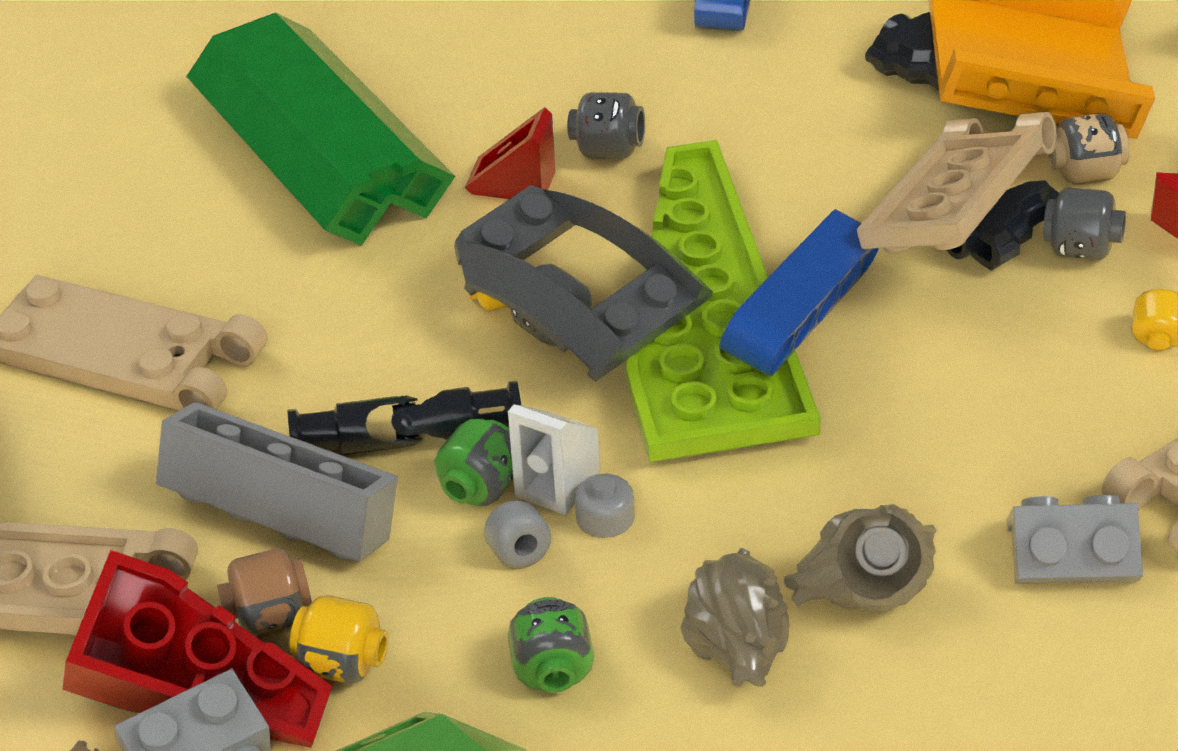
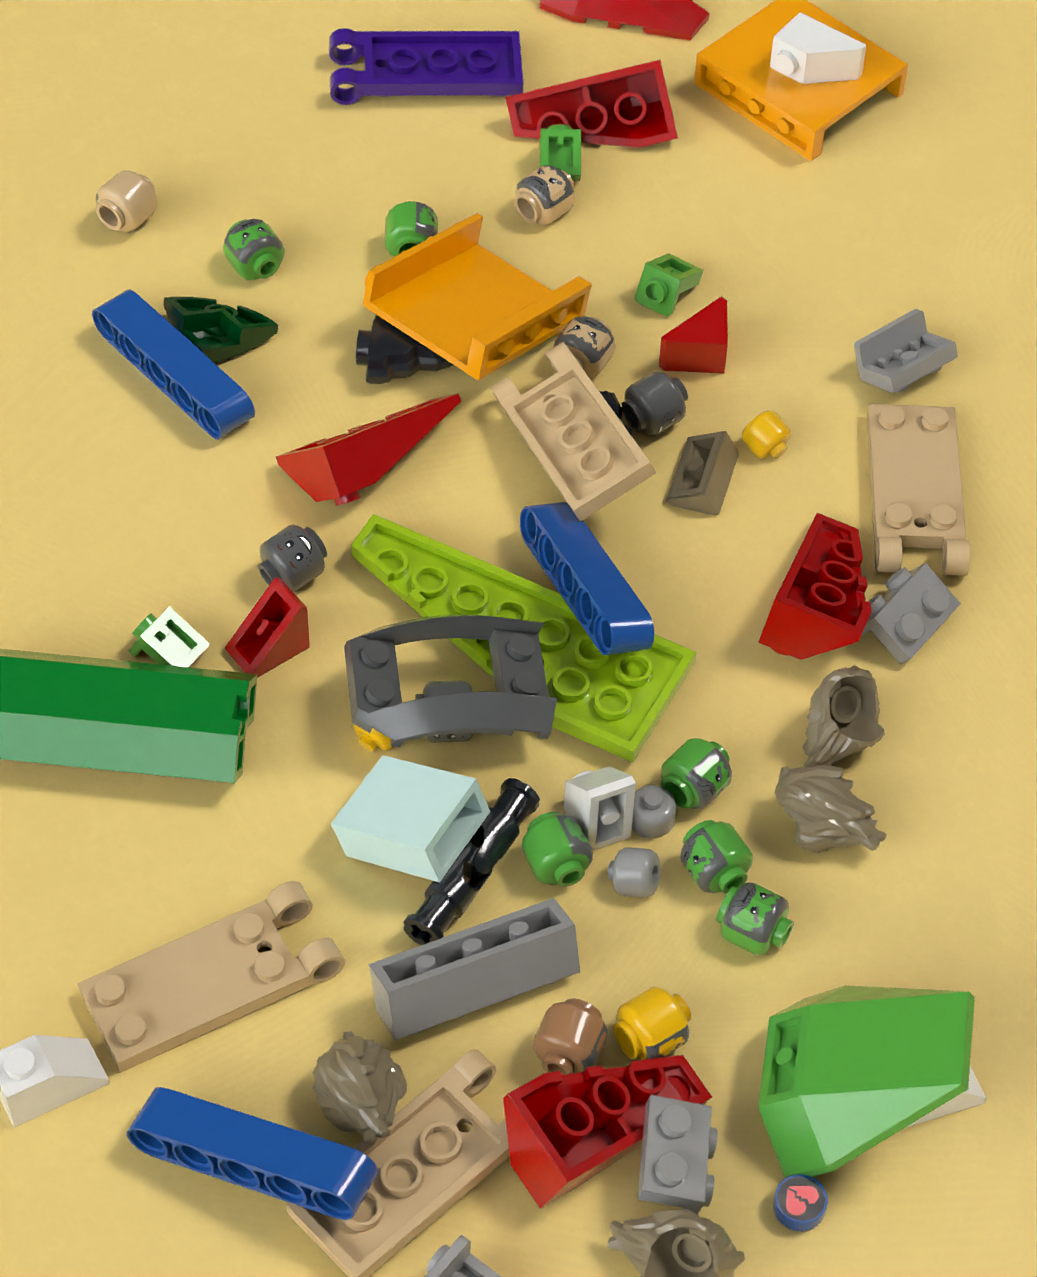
camera: 55 degrees left, 10 degrees up
(76, 482) = (359, 1086): none -> dark tan hair
(397, 345) = (411, 818): none -> light aqua brick
(438, 117) = (168, 640): none -> bracket
(593, 571) = (716, 856): none -> bright green head
(675, 502) = (696, 773): none -> bright green head
(765, 92) = (357, 459): none -> red wedge
(1005, 451) = (822, 594): none -> red wedge
(1060, 312) = (704, 473): none -> dark tan slope

